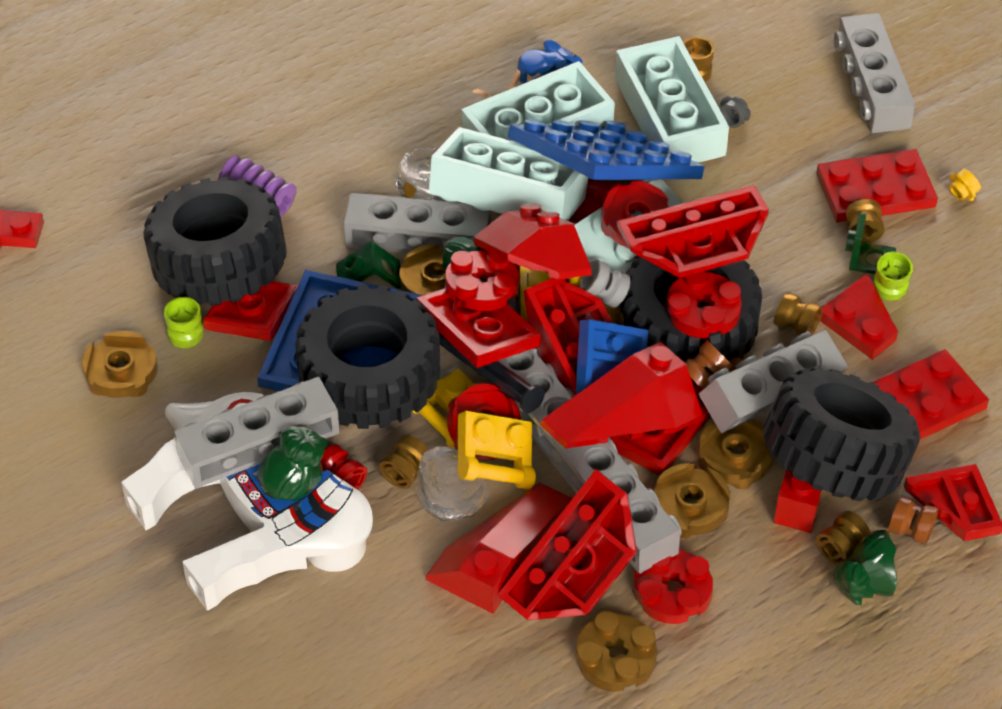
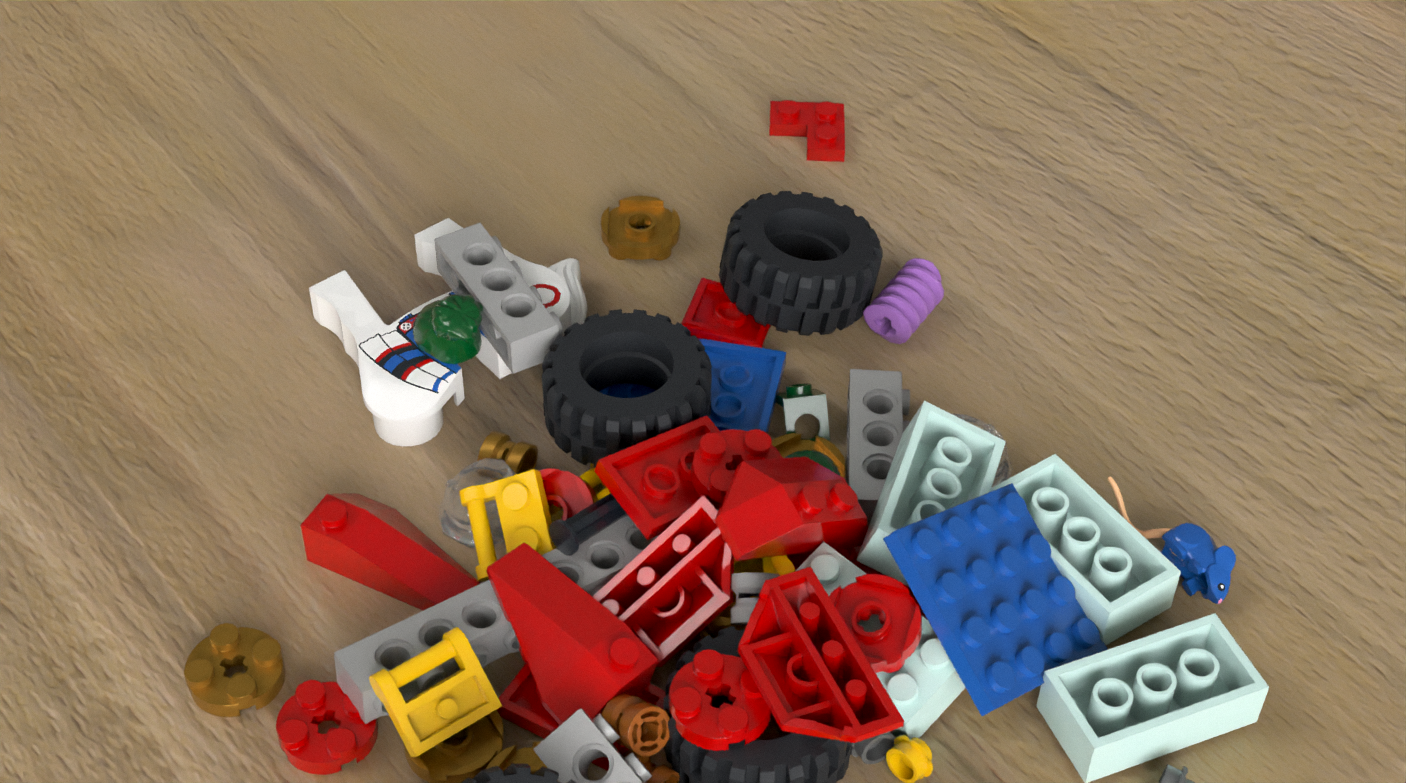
camera: 85 degrees right, 5 degrees down
(183, 322) = (698, 260): lime wheel -> none
(338, 462) = (499, 401): red wheel -> none
(576, 555) = (342, 598): red wedge -> none
(603, 348) = (646, 604): blue wing -> none
(674, 486) = (442, 707): none -> yellow plate
(701, 59) = (1262, 736): pearl gold wheel -> none

